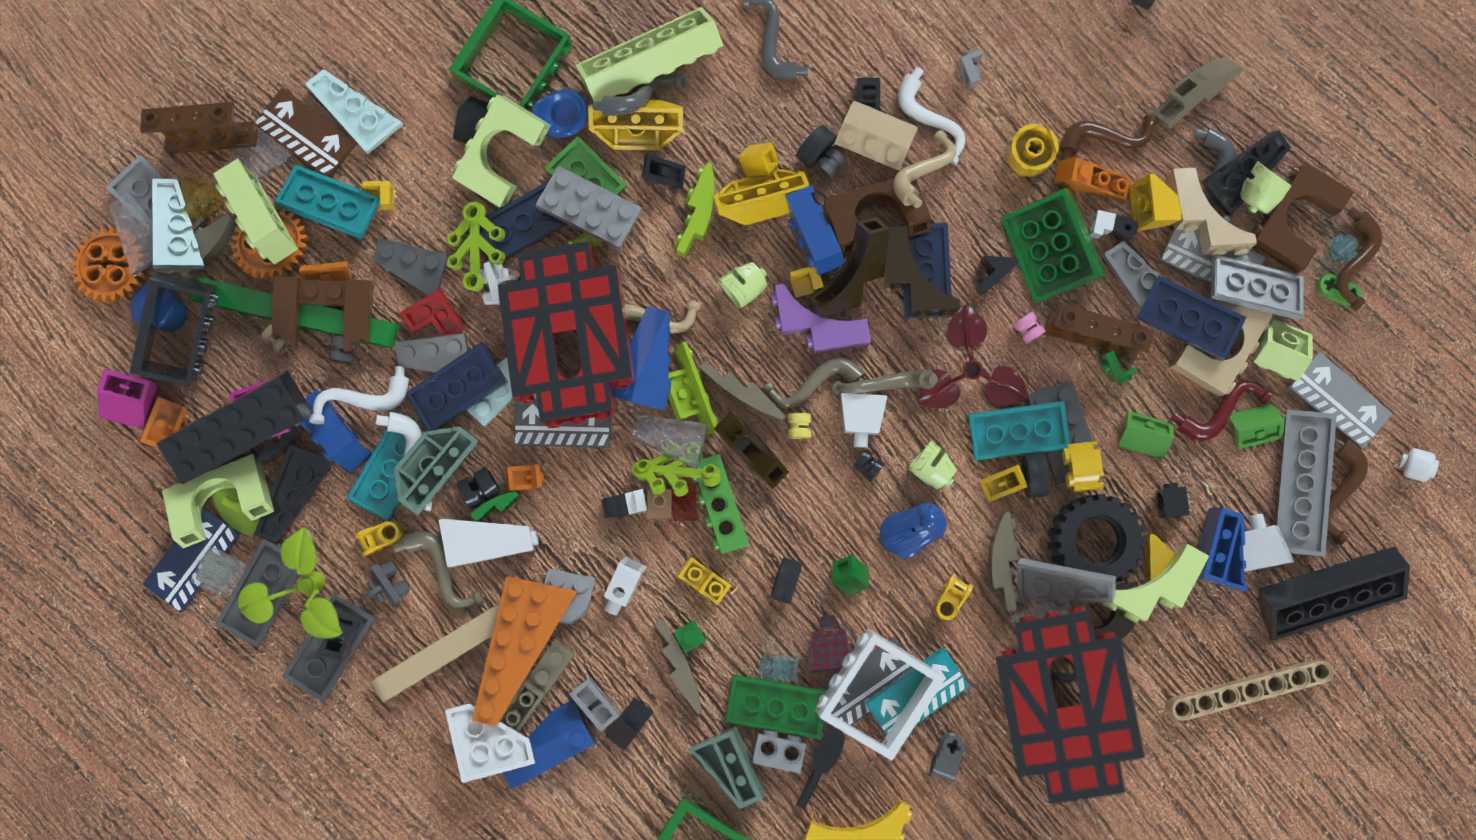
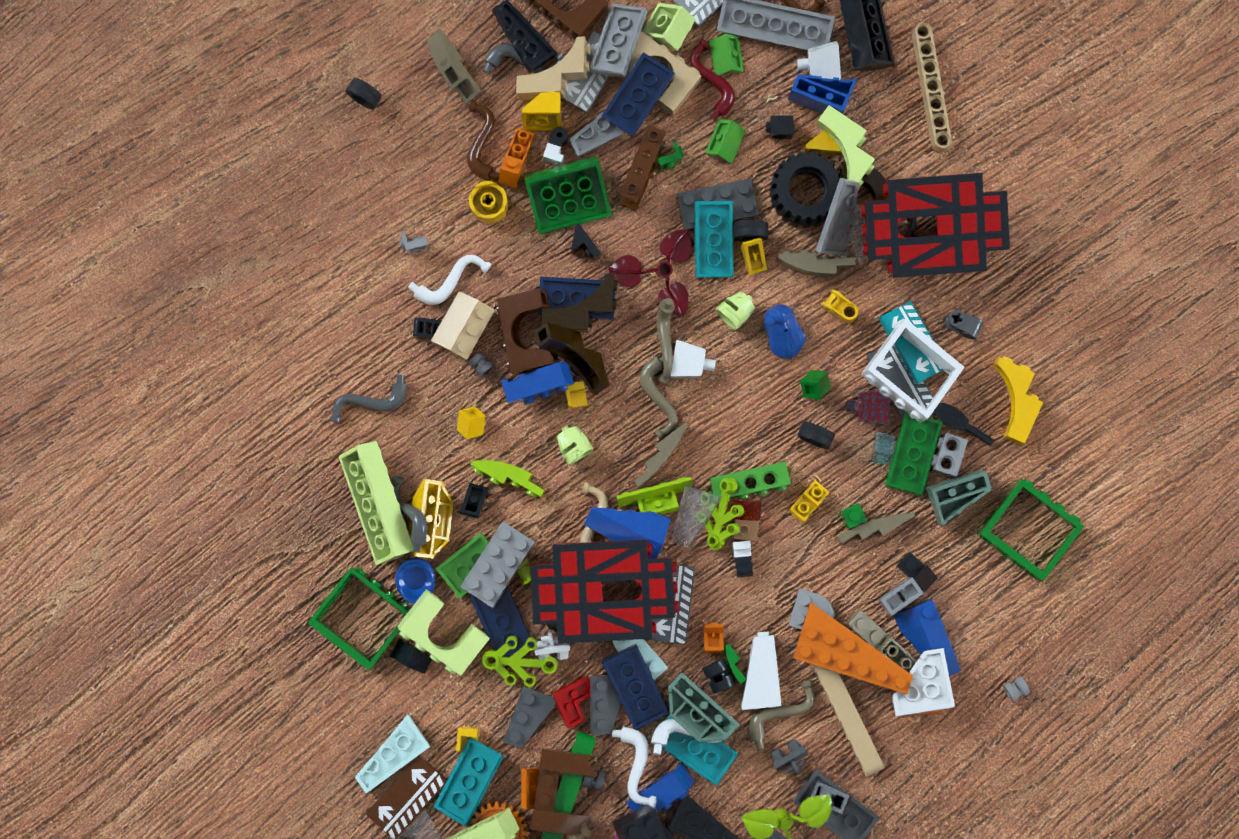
camera: 80 degrees left, 0 degrees up
(375, 538) = (751, 764): yellow piece -> none
(627, 577) = (802, 561): white torso -> none
(750, 450) = (710, 452): dark brown arch -> none
(759, 197) = (502, 425): yellow wedge -> none
(799, 420) = (693, 412): light yellow wheel -> none
(816, 146) = (466, 374): black tyre -> none
(825, 333) = (620, 385): medium lavender arch -> none
(868, 465) = (729, 360): black wheel -> none
(902, 182) = (505, 308): tan animal -> none
(1026, 323) = (627, 222): bright pink wheel -> none
(1083, 465) = (749, 192): yellow brick -> none
(1264, 190) = (542, 24): yellowish green helmet -> none

